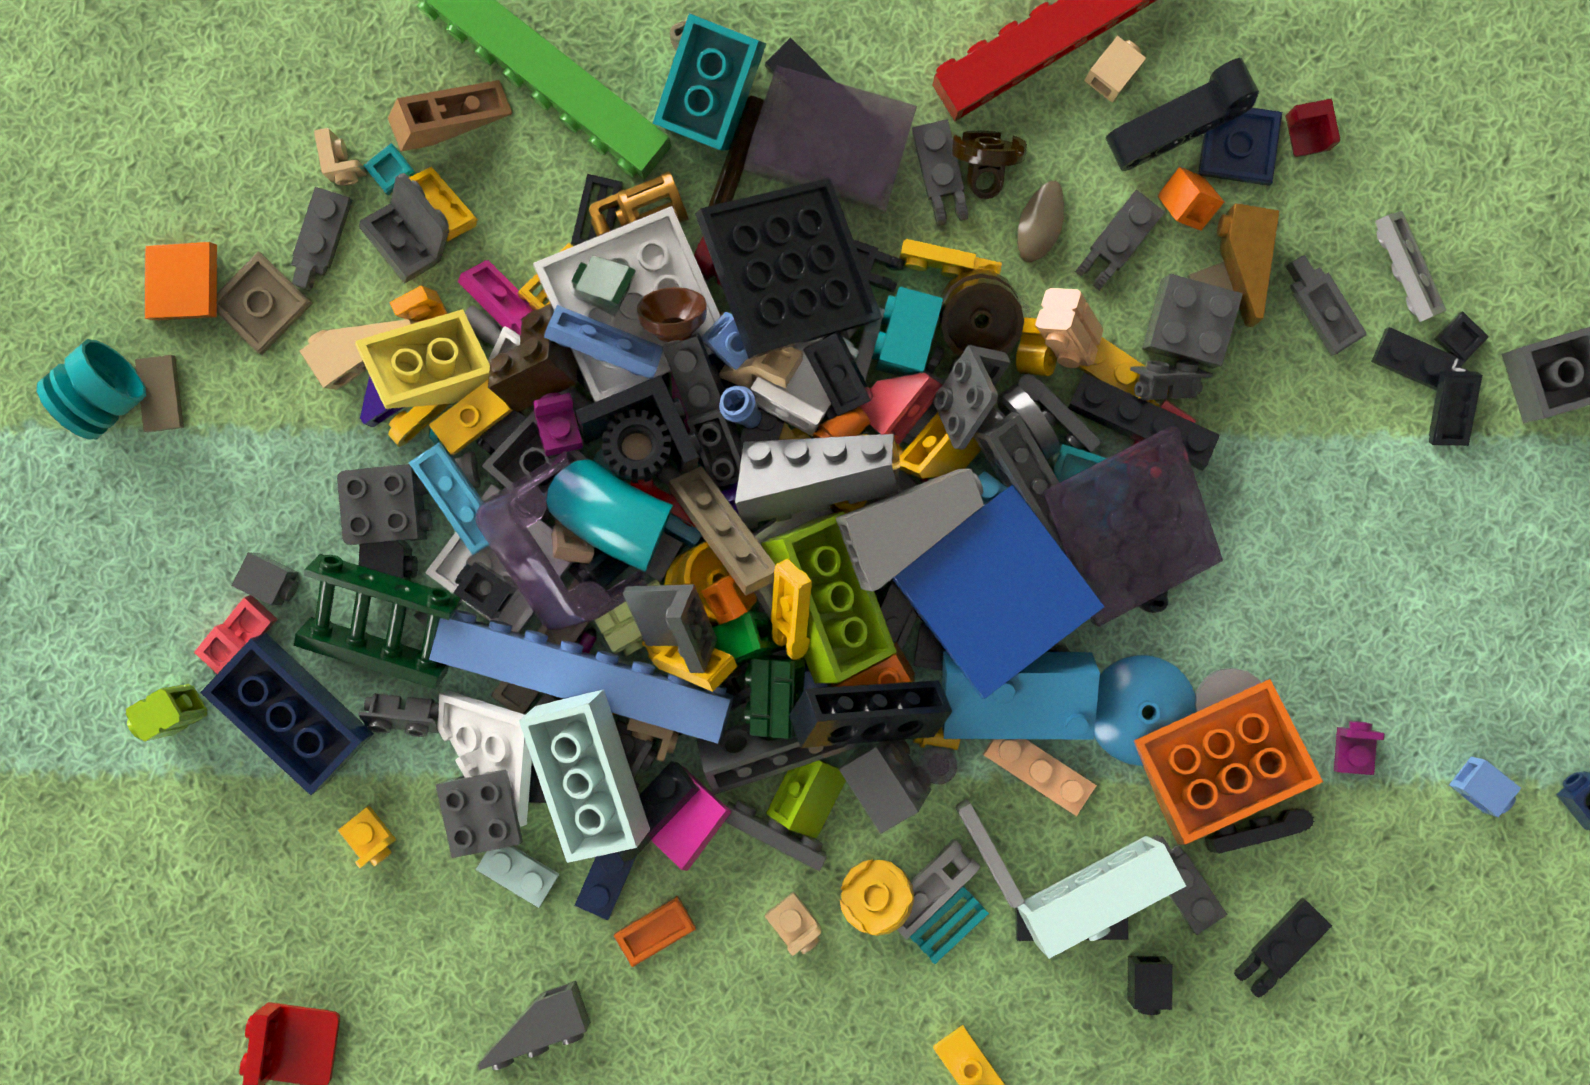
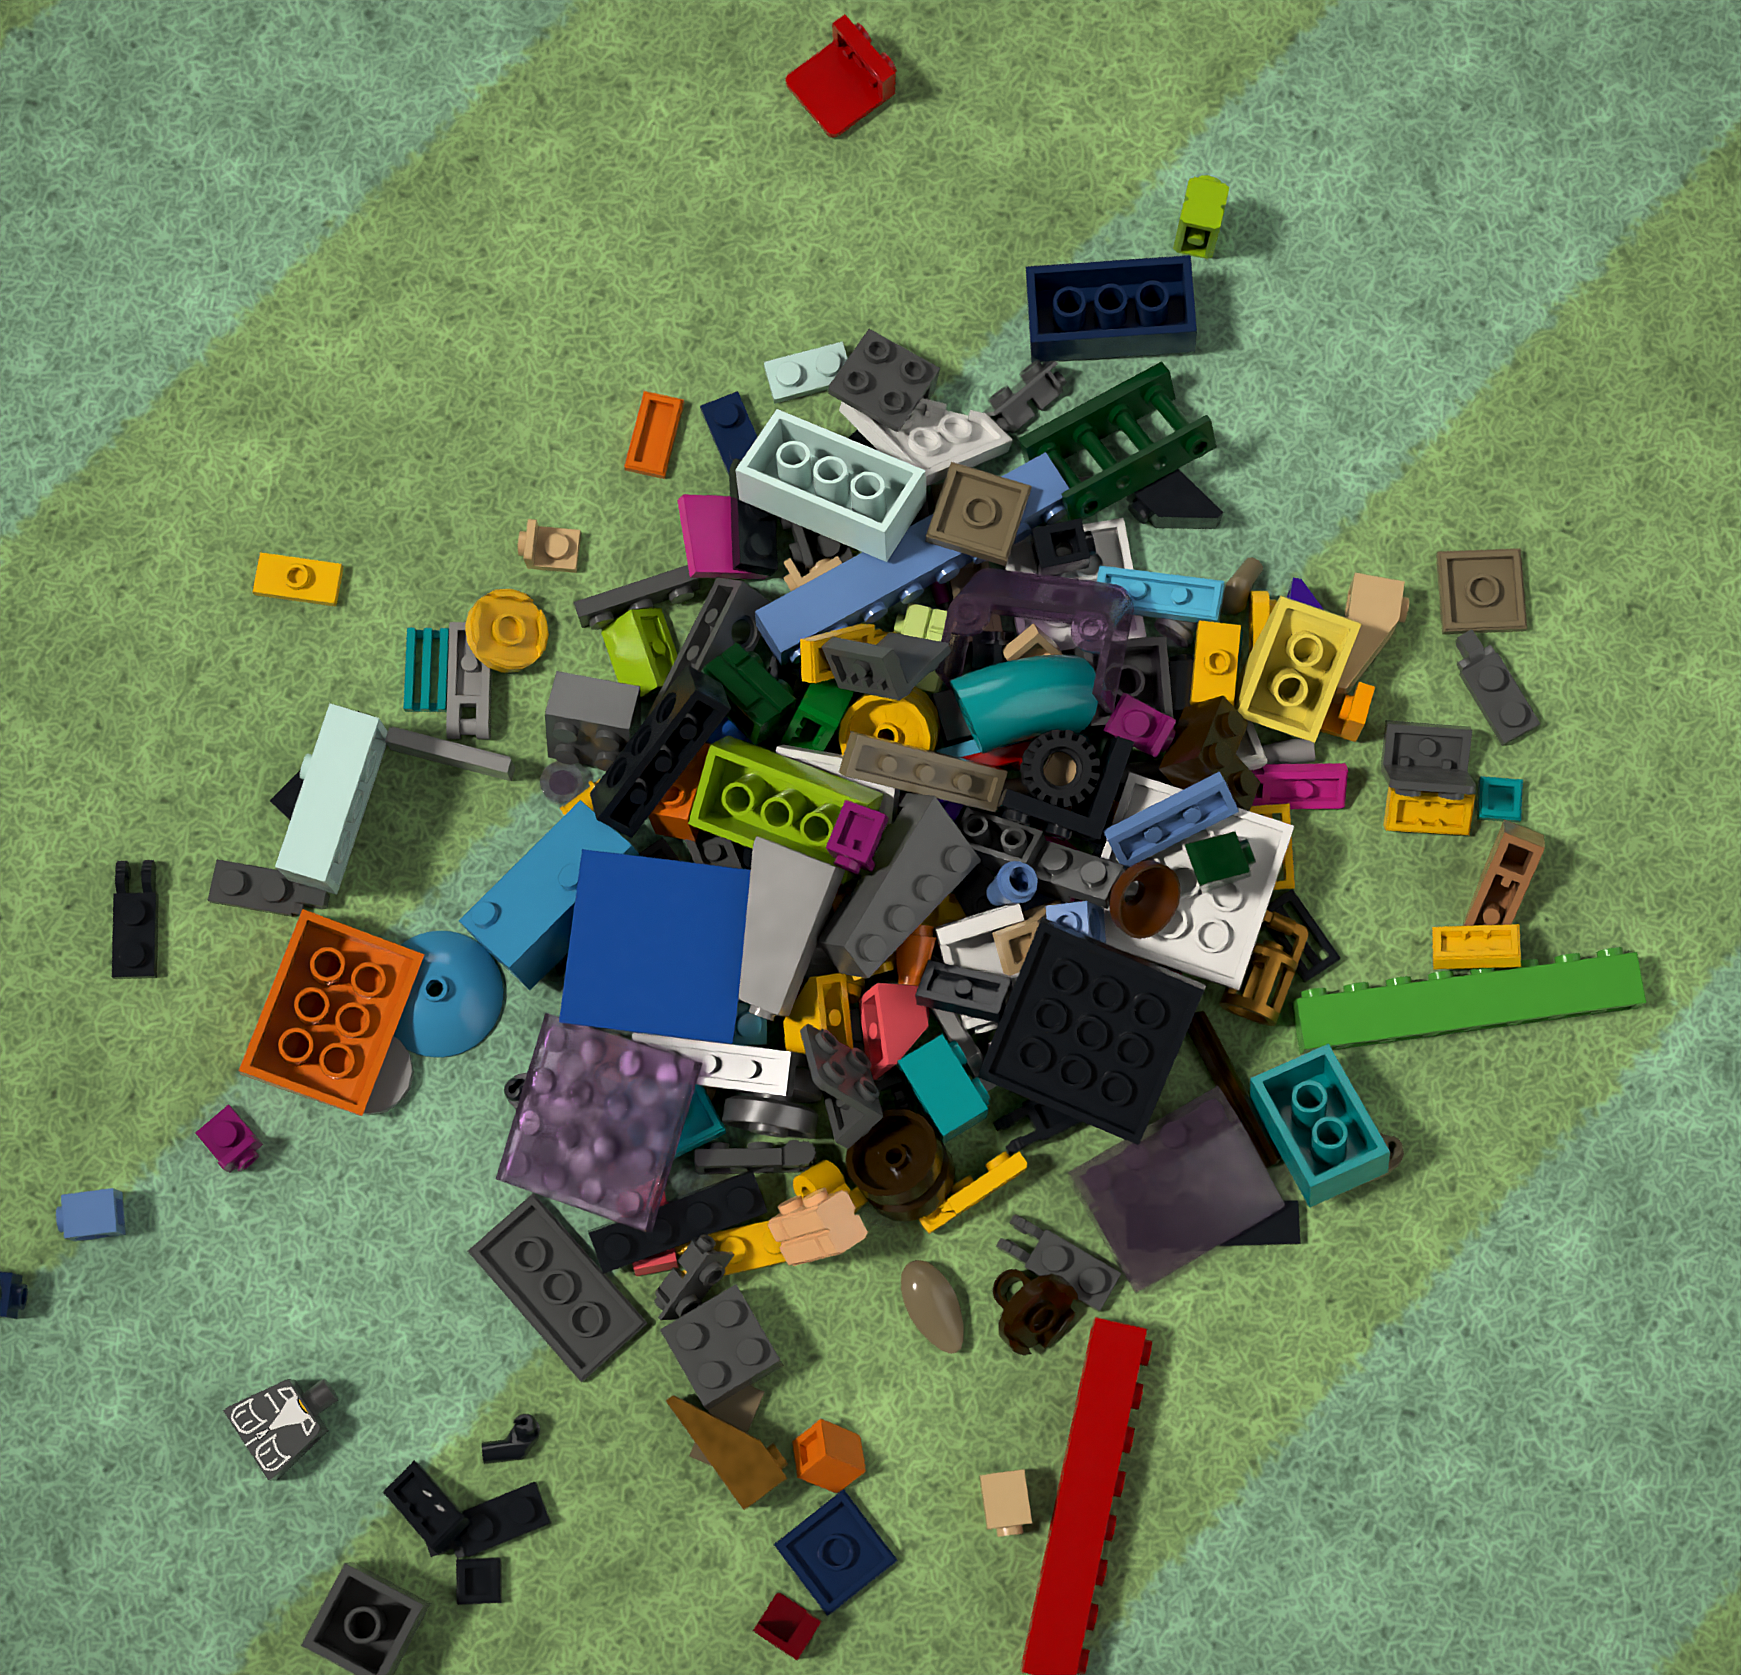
camera: 130 degrees right, 10 degrees down
(91, 389) = (1525, 390): teal wheel -> none
(162, 404) = (1479, 444): dark tan tile -> none
(181, 281) = (1558, 543): orange tile -> none
(225, 640) = (1217, 327): coral slope -> none
(266, 579) = (1238, 389): dark grey brick -> none
(331, 157) = (1555, 761): tan bracket -> none
(368, 837) = (950, 283): yellow bracket -> none
(382, 505) = (1209, 531): dark grey bracket -> none
(399, 455) = (1239, 587): none -> dark tan arm
(501, 92) = (1476, 946): none -> yellow plate
(513, 661) = (978, 513): none -> dark tan tile
(548, 1020) = (667, 289): dark grey slope -> none
(727, 599) = (862, 719): orange panel -> none
(791, 608) = (805, 760): yellow hinge -> none
(812, 525) = (856, 837): none -> magenta bracket
(1041, 772) = (470, 861): light nougat plate -> none
(1122, 236) = (853, 1366): dark grey hinge -> none
(1149, 984) = (218, 782): black brick -> none
(1220, 100) = (905, 1510): black beam -> none
(1248, 460) = (557, 1287): none -> dark grey tile
(1260, 830) = (246, 991): black hinge -> none
(1324, 306) = (621, 1482): dark grey hinge -> none
(1364, 393) = (517, 1443): none -> black arm
(1409, 266) = (584, 1593): light grey plate -> none
(1492, 545) = (281, 1423): none -> dark grey torso

